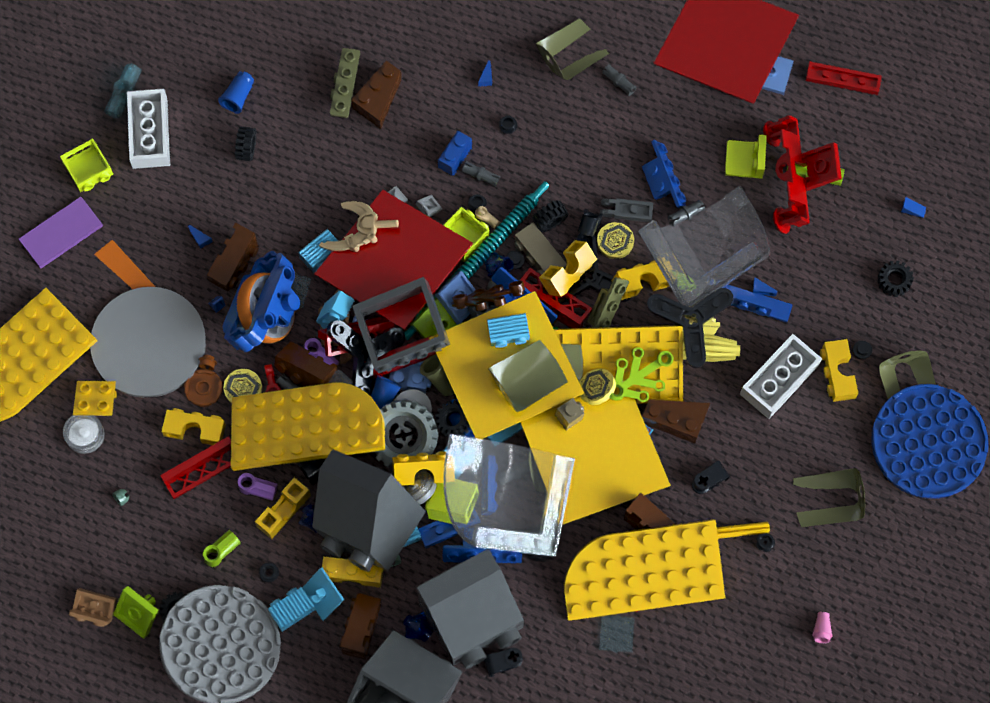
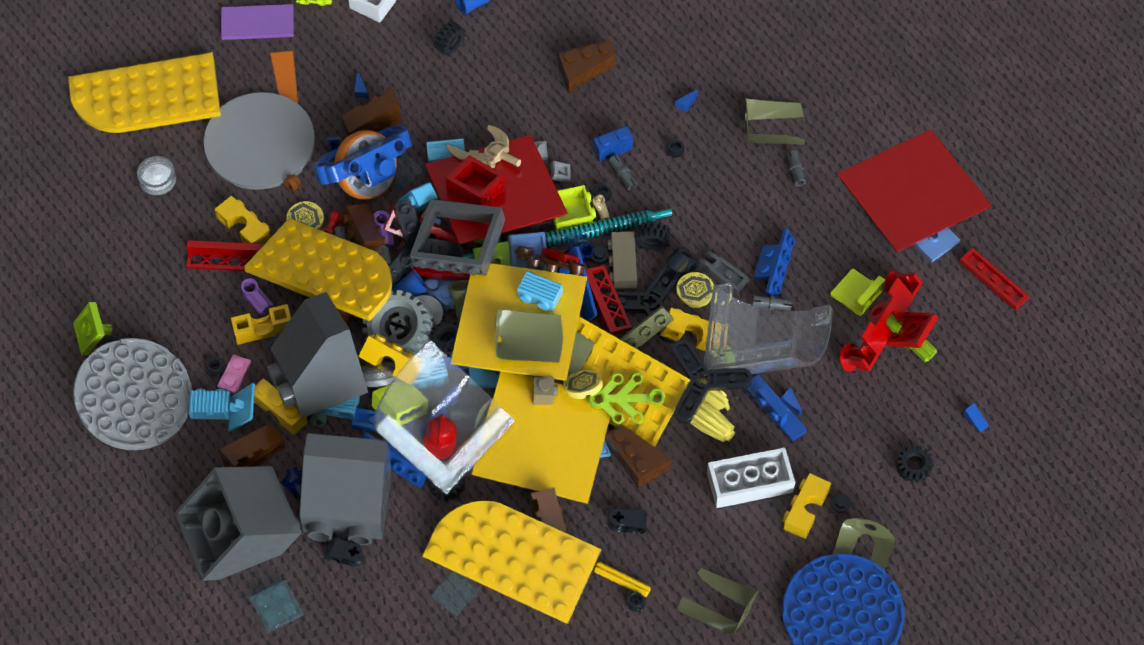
camera: 35 degrees right, 10 degrees down
(93, 607) = (61, 307): medium nougat bracket -> none
(94, 398) = (184, 154): yellow hinge -> none
(119, 495) = (147, 240): sand green hinge -> none
(205, 393) = (280, 200): dark orange tile -> none
(222, 547) = (192, 325): lime piece -> none
(289, 567) = (234, 374): none -> bright pink plate
(344, 83) = (563, 38): olive bracket -> none
(375, 279) = (464, 170): none -> red window
(490, 284) = (559, 255): none -> red tile
(513, 510) = (440, 436): none -> red piece
(579, 259) = (648, 281): yellow arch -> none

